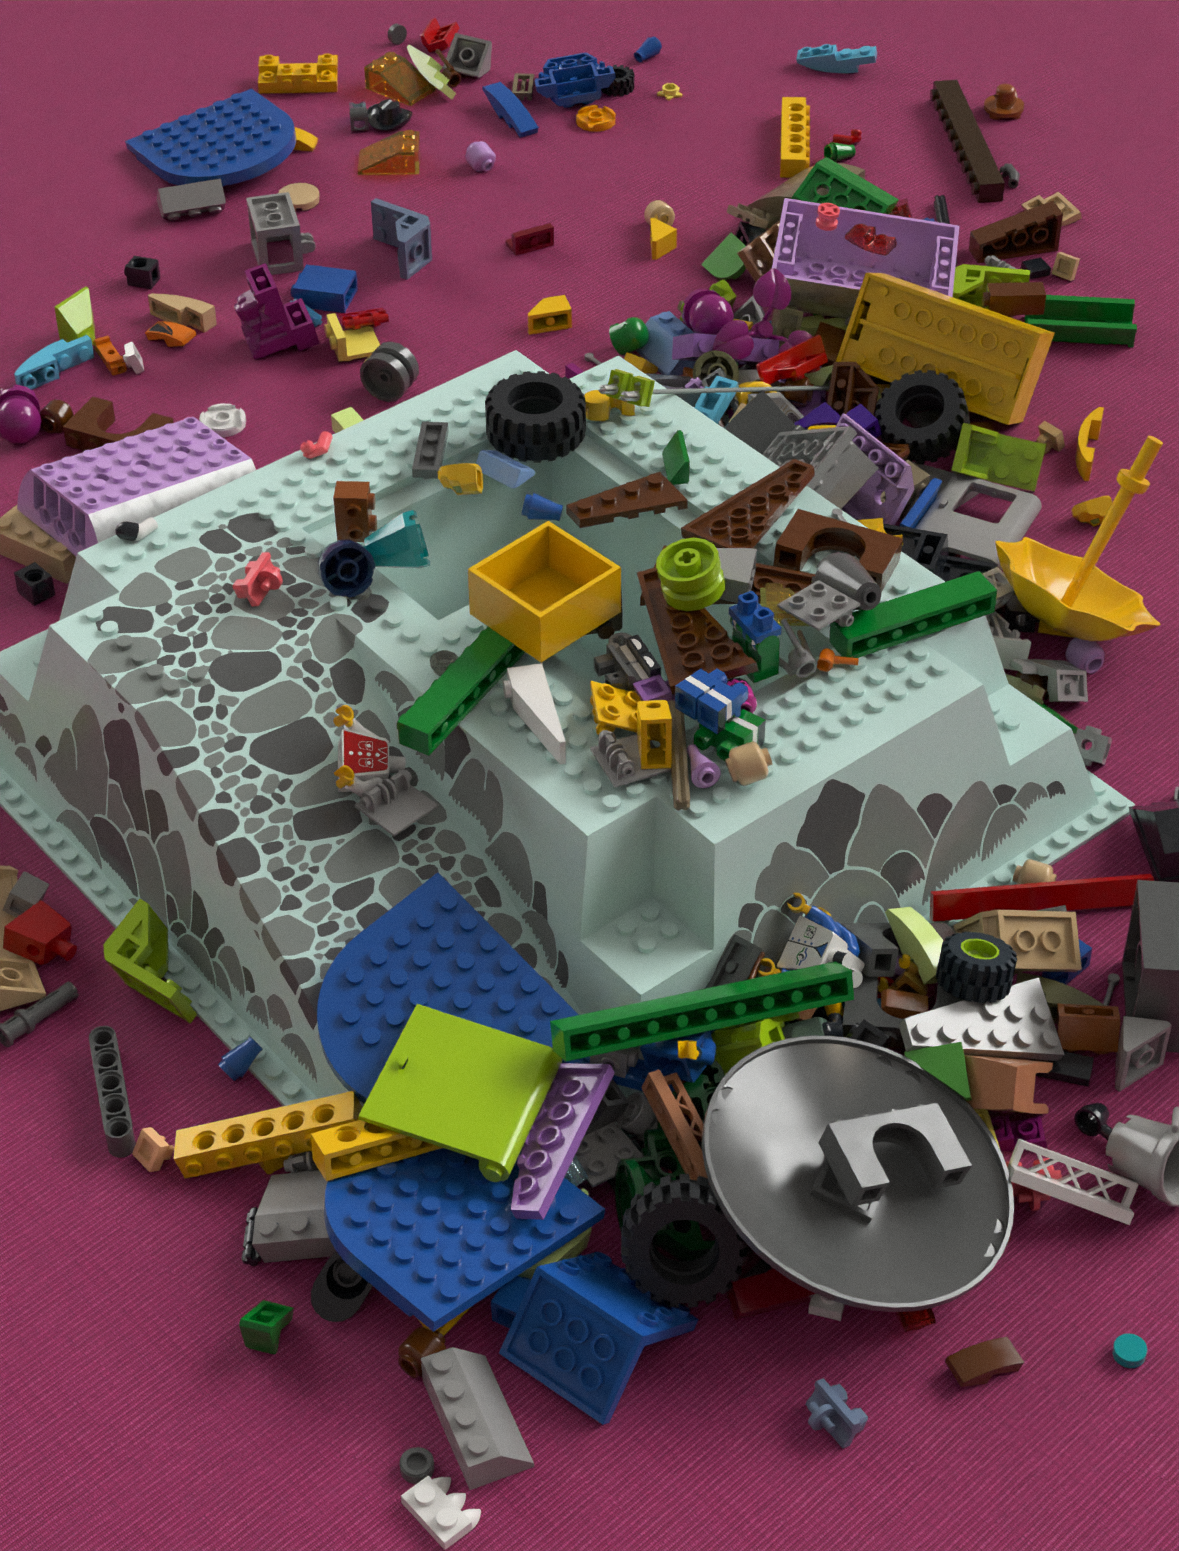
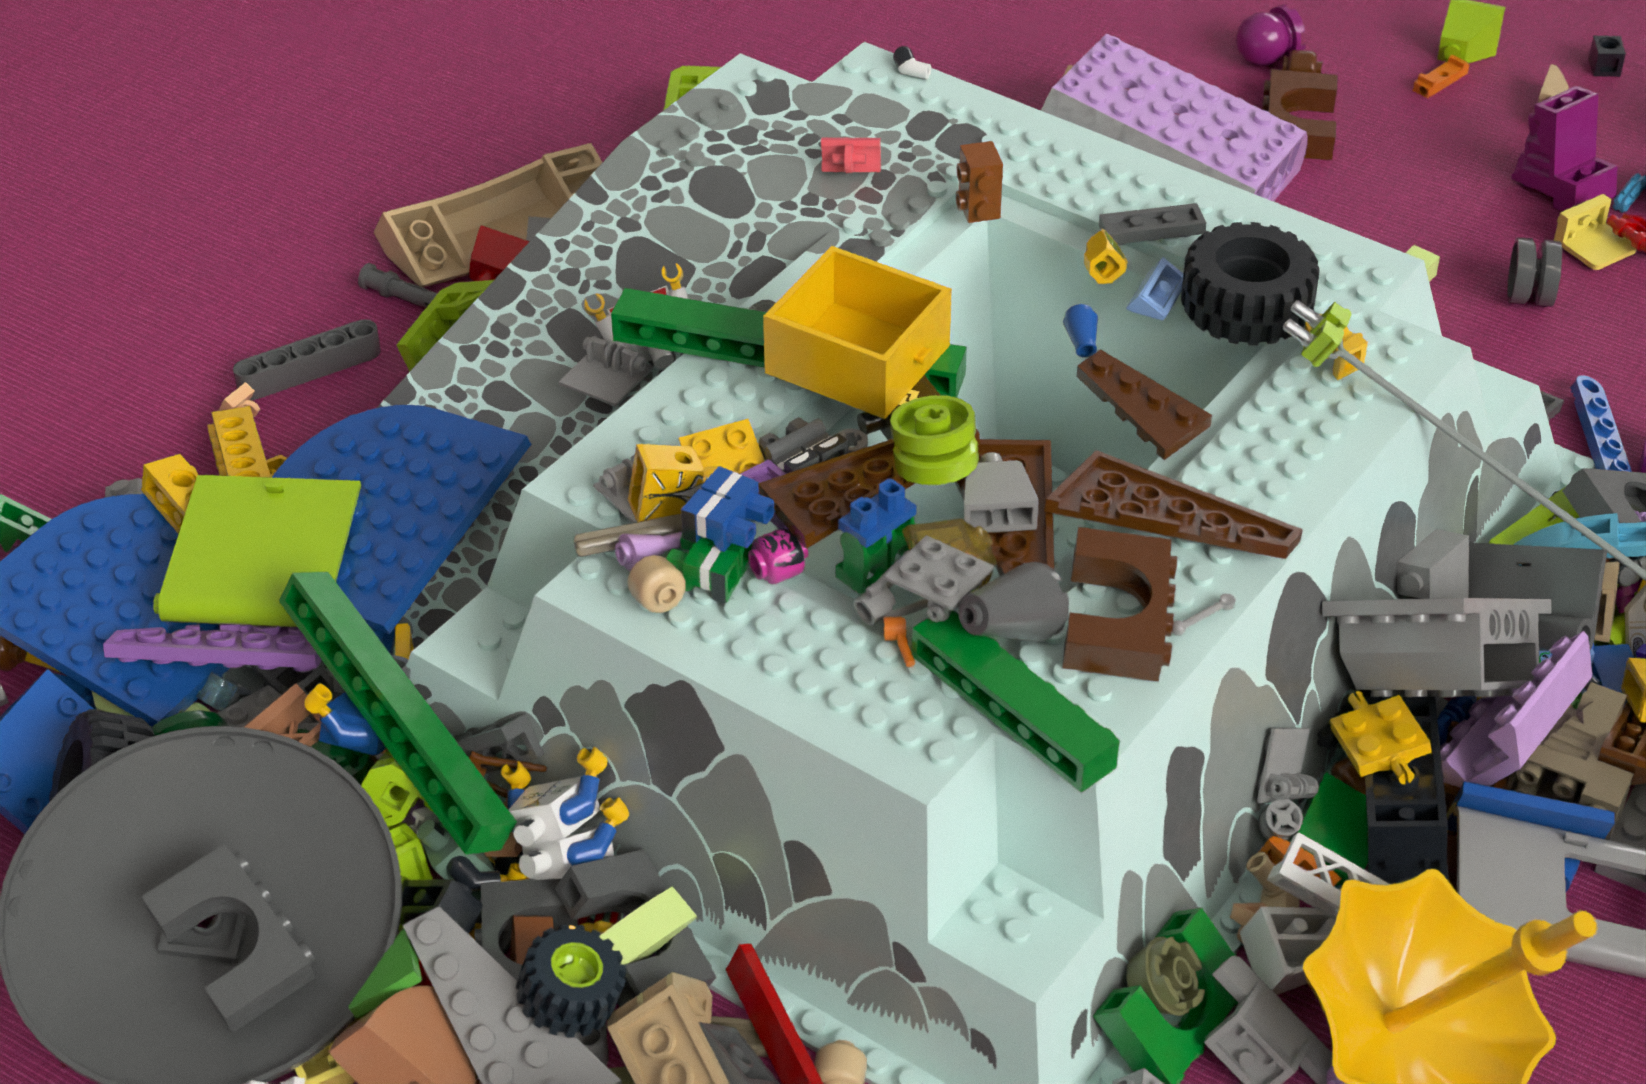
camera: 75 degrees right, 0 degrees up
(51, 360) = (1387, 36): medium azure slope -> none
(133, 358) = (1440, 90): white plate -> none
(172, 333) = (1509, 105): slope -> none
(224, 419) = (1379, 183): white tile -> none
(321, 447) = (1124, 151): coral arm -> none
(346, 568) = (884, 201): dark blue cylinder -> none
(399, 543) = (950, 234): teal cone -> none
(535, 706) = (705, 394): white slope -> none
(676, 460) = (1248, 428): green slope -> none

